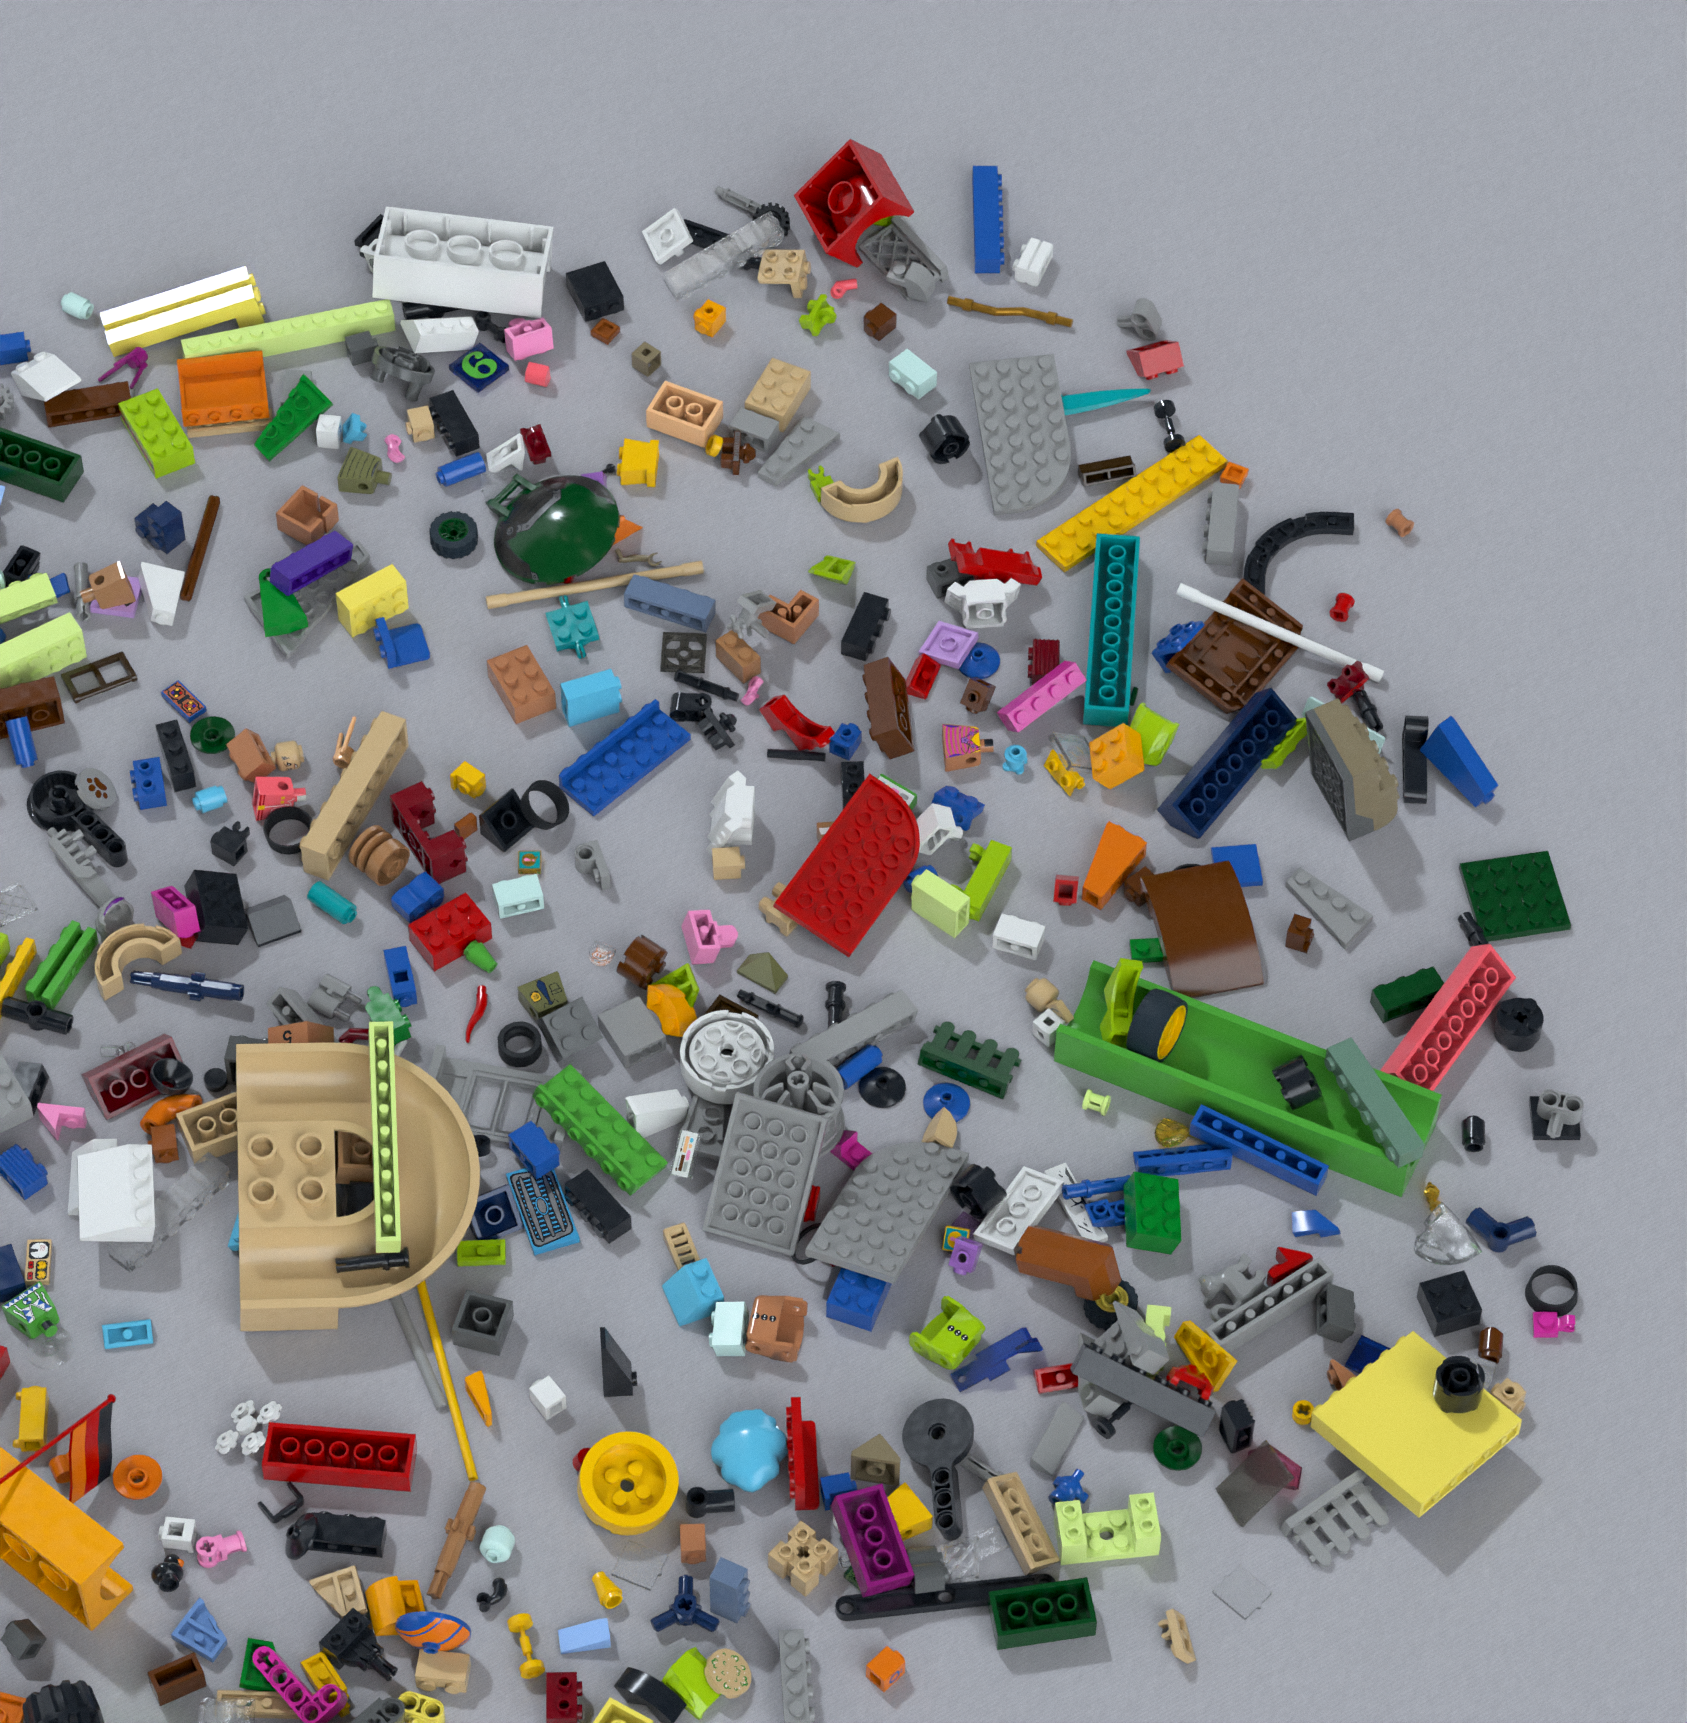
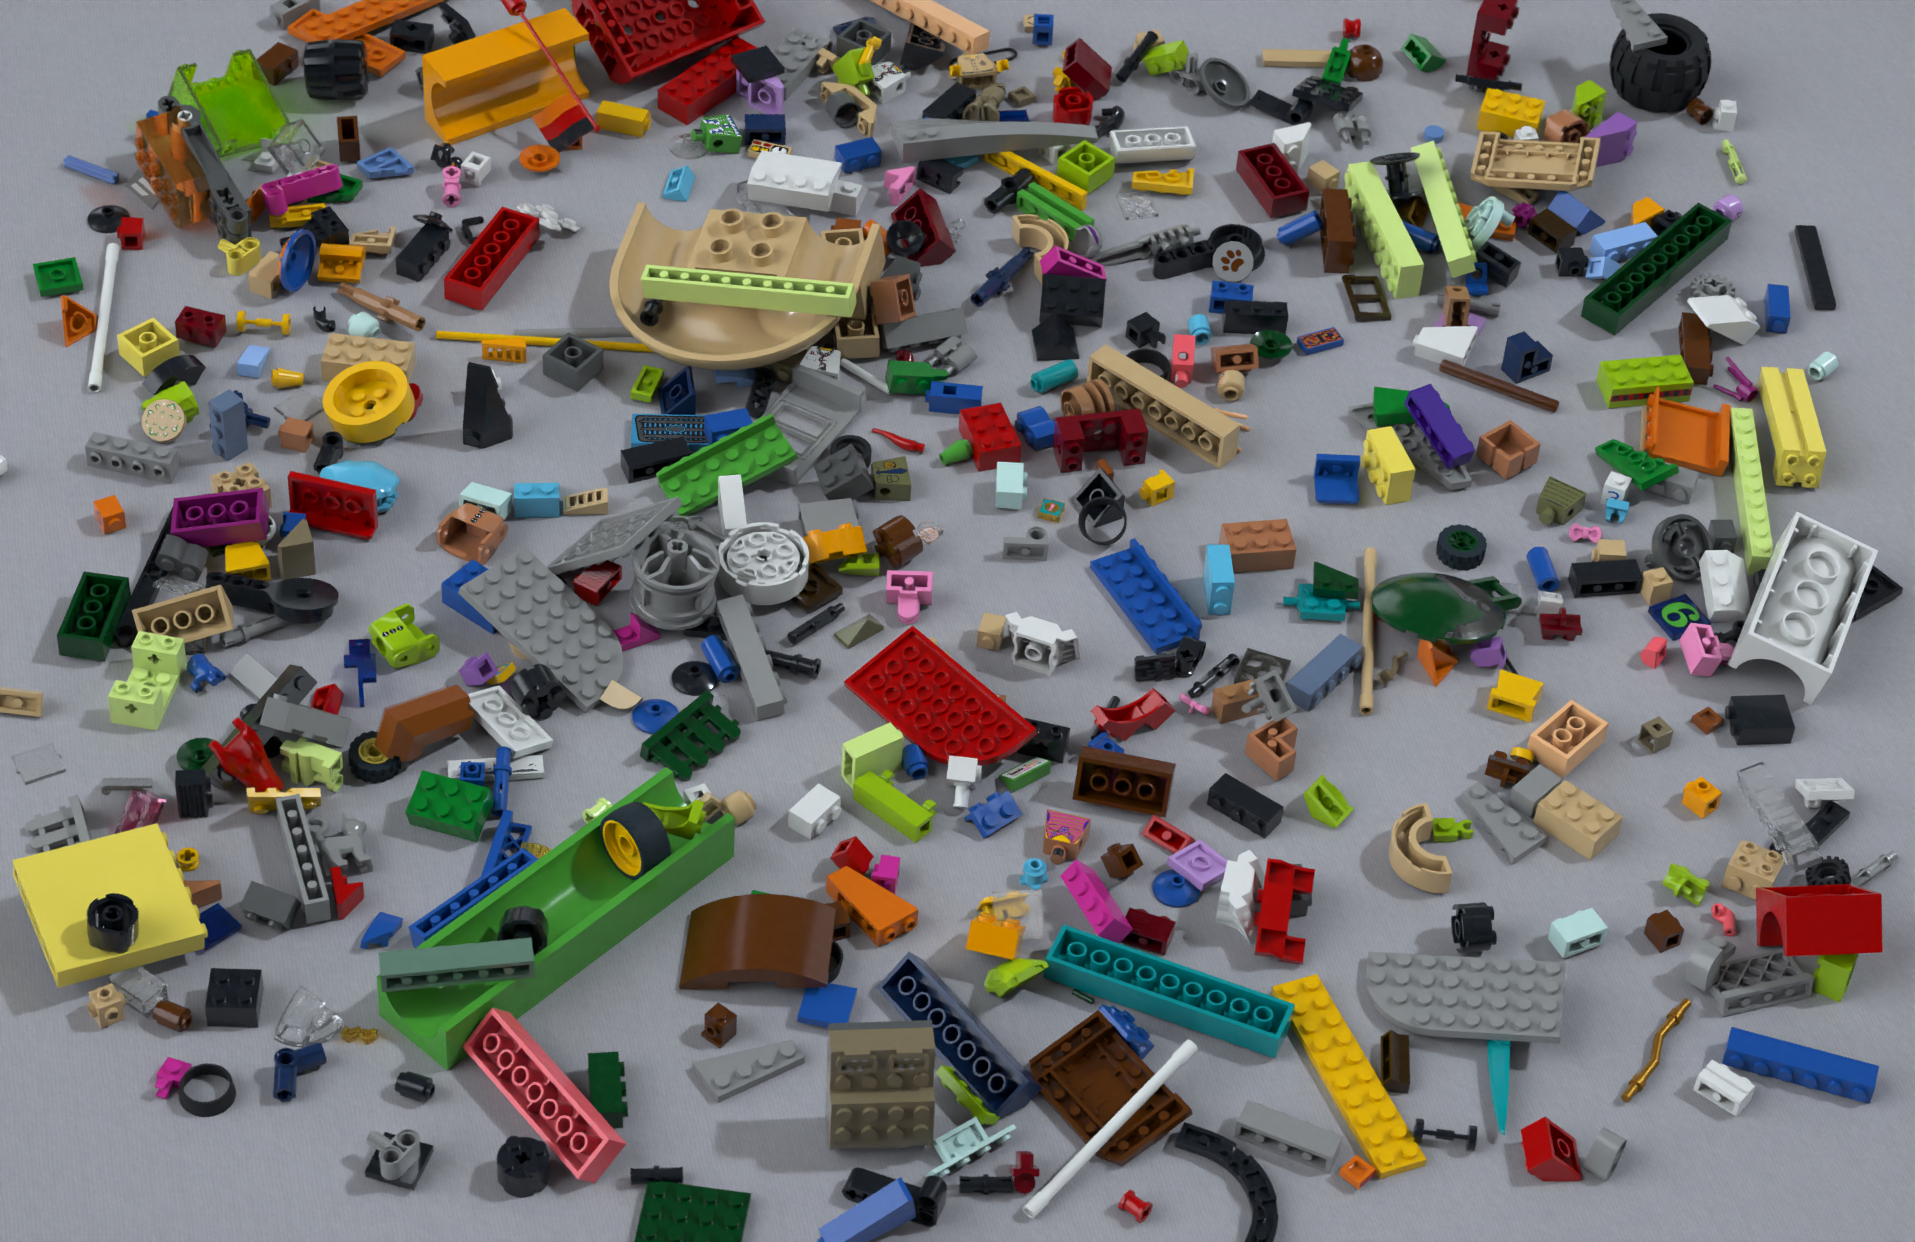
camera: 105 degrees right, 10 degrees down
(450, 380) = (1656, 586): none -> tan brick
(552, 1517) = (348, 350): none -> tan brick
(553, 614) = (1334, 583): none -> dark green wing
(1068, 862) = (887, 872): none -> dark pink brick

